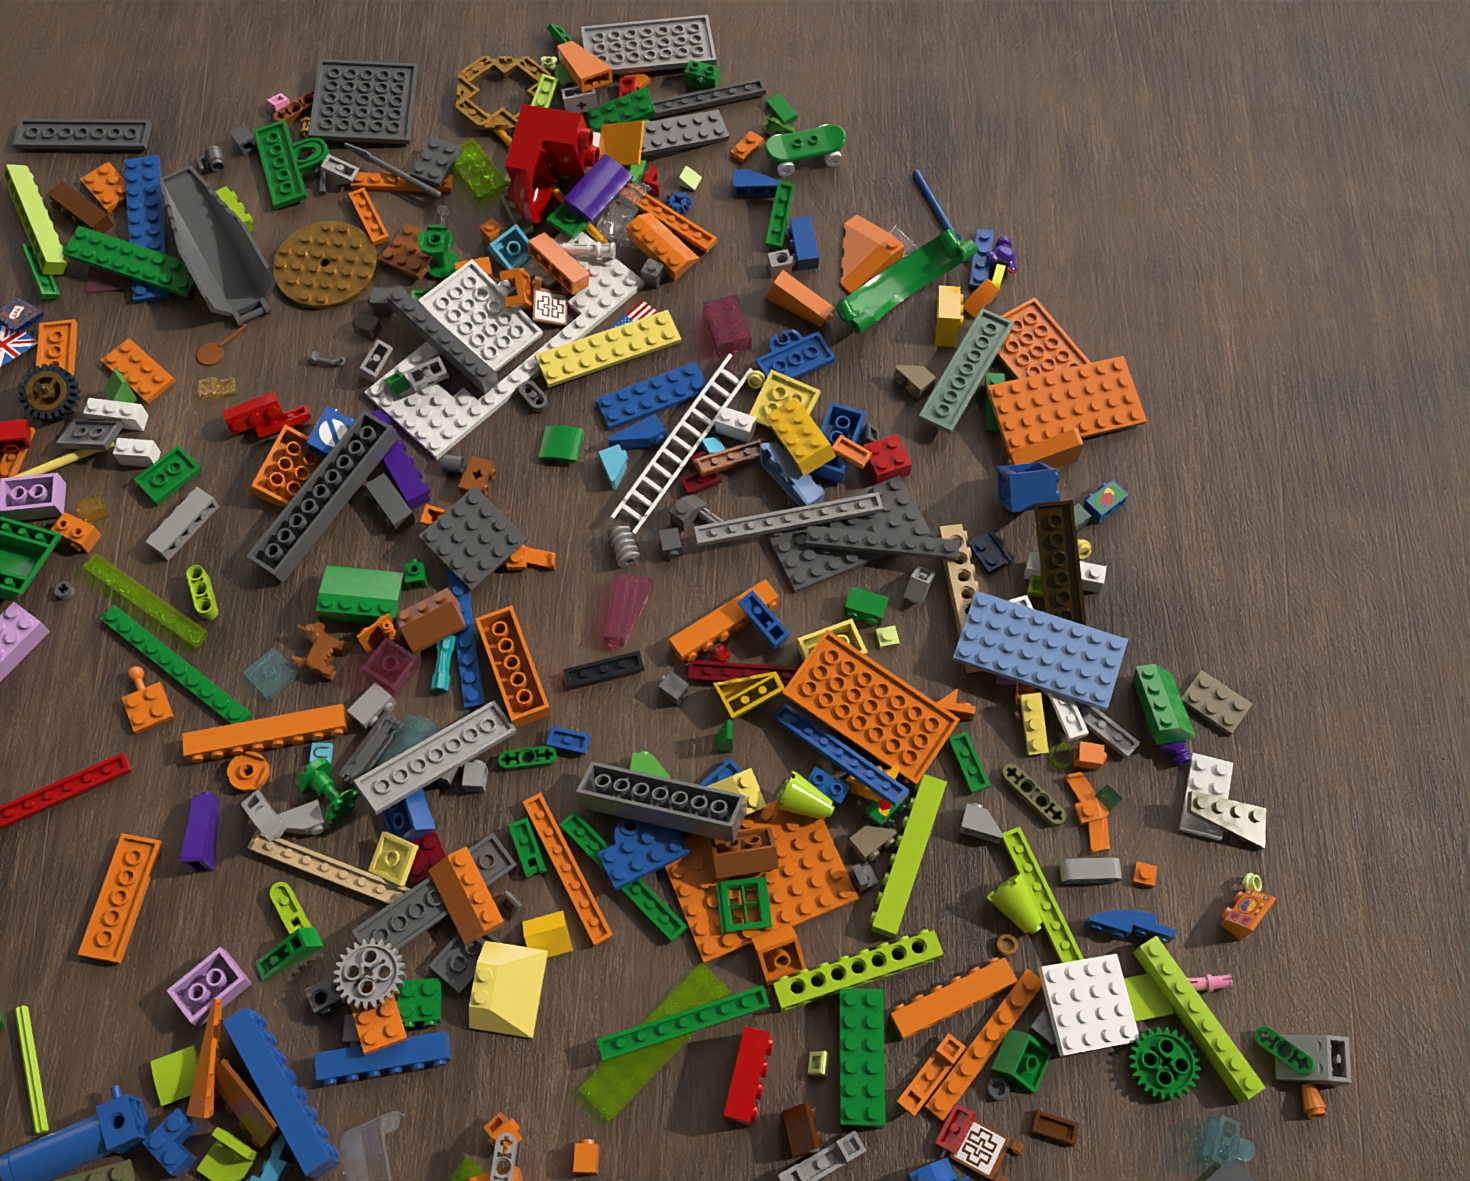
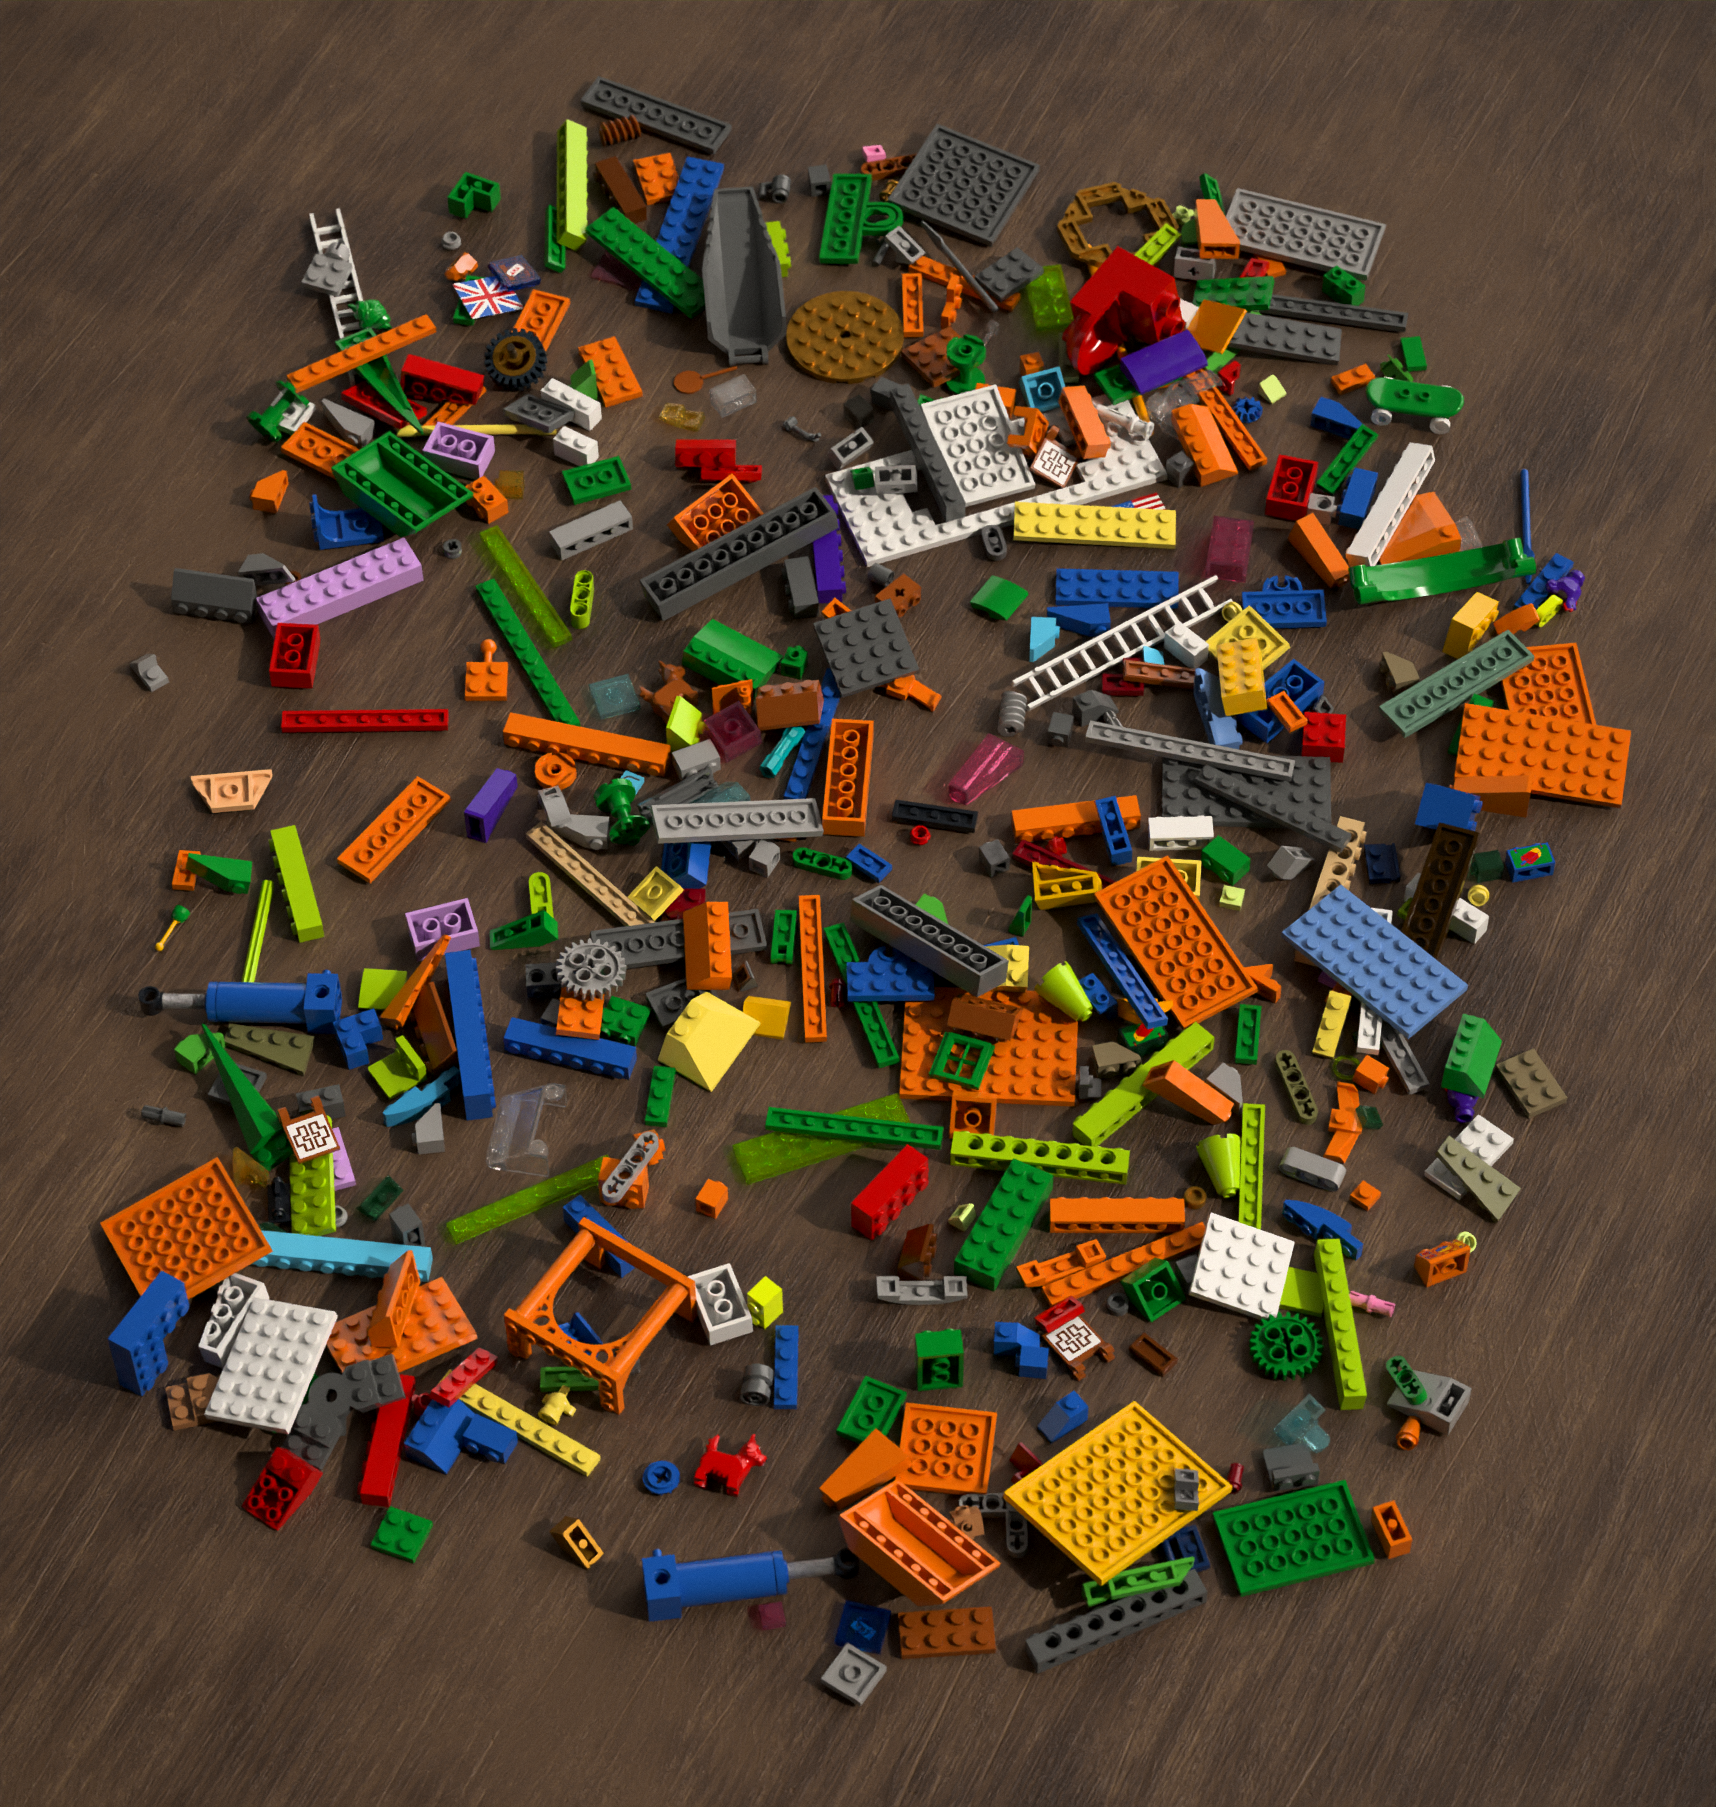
camera: 25 degrees right, 10 degrees down
(49, 999) = (297, 884): none -> lime brick
(56, 157) = (619, 129): none -> dark orange piece
(254, 352) = (733, 395): none -> clear brick
(327, 432) = (769, 496): blue brick -> none
(346, 680) = (684, 725): none -> lime slope
(401, 201) = (953, 302): none -> orange plate
(488, 1066) = (660, 1096): none -> green plate
(599, 689) = (920, 831): none -> red plate
(600, 882) = (837, 992): none -> dark red pin
(749, 255) = (1291, 487): none -> red brick
(816, 596) = (1180, 833): none -> white brick
(832, 241) = (1391, 505): none -> white brick
(954, 848) = (1189, 1092): none -> orange slope

